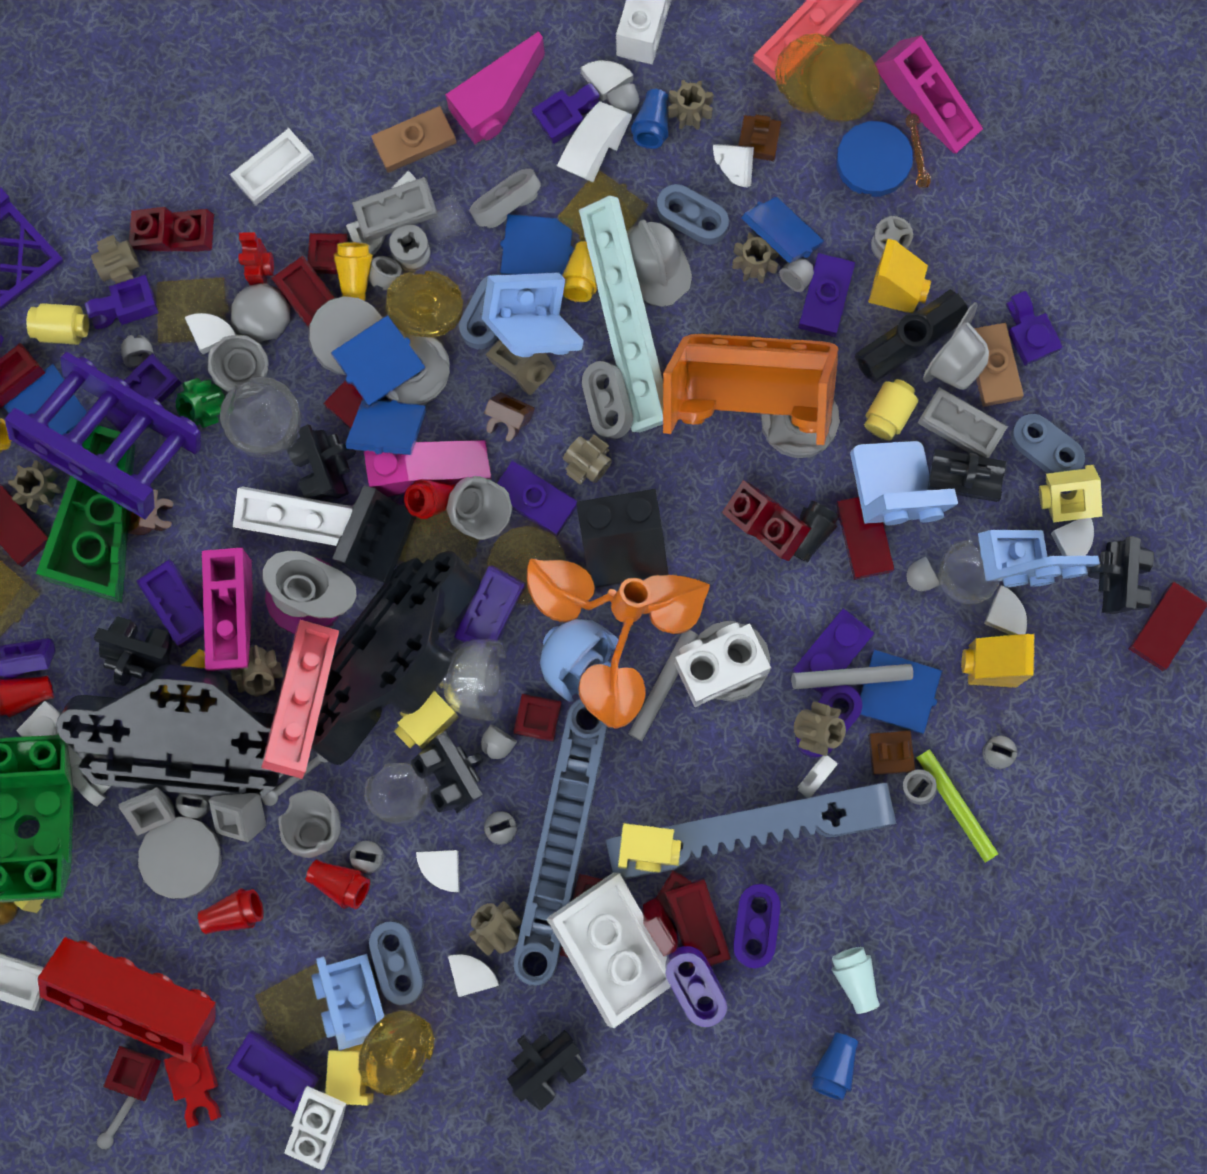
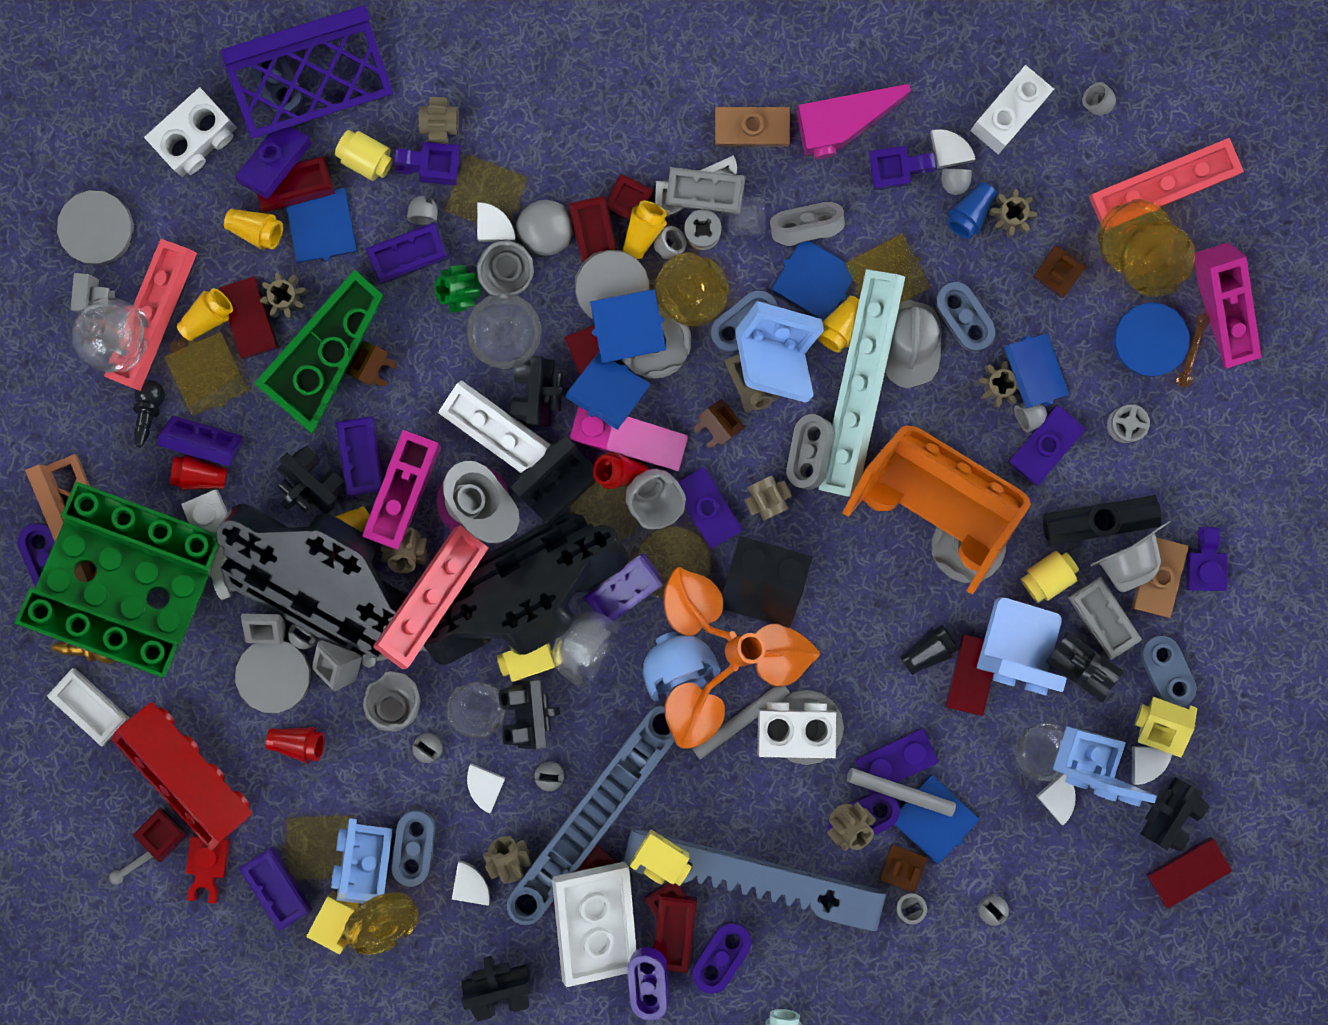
camera: 20 degrees right, 10 degrees up
(101, 471) = (347, 321): dark purple fence -> none
(168, 231) = (500, 111): dark red slope -> none
(255, 258) = (562, 181): red plate -> none
(272, 166) = (615, 92): white tile -> none
(315, 1128) = (289, 951): white slope -> none
(340, 884) = (396, 762): red cone -> none
(497, 742) = (579, 704): light grey hinge -> none
(537, 717) = (622, 698): dark red tile -> none
(588, 146) = (910, 205): white slope -> none
(660, 926) = (642, 922): dark red tile -> none
(735, 163) = (1026, 286): white tile -> none
(766, 520) = (895, 622): dark red slope -> none
(817, 776) = (830, 859): white tile -> none
(899, 279) = (1115, 466): yellow slope -> none
(921, 575) = (1003, 732): light grey hinge -> none
(958, 806) = (935, 937): lime bar -> none
(999, 660) = (1030, 839): yellow slope -> none

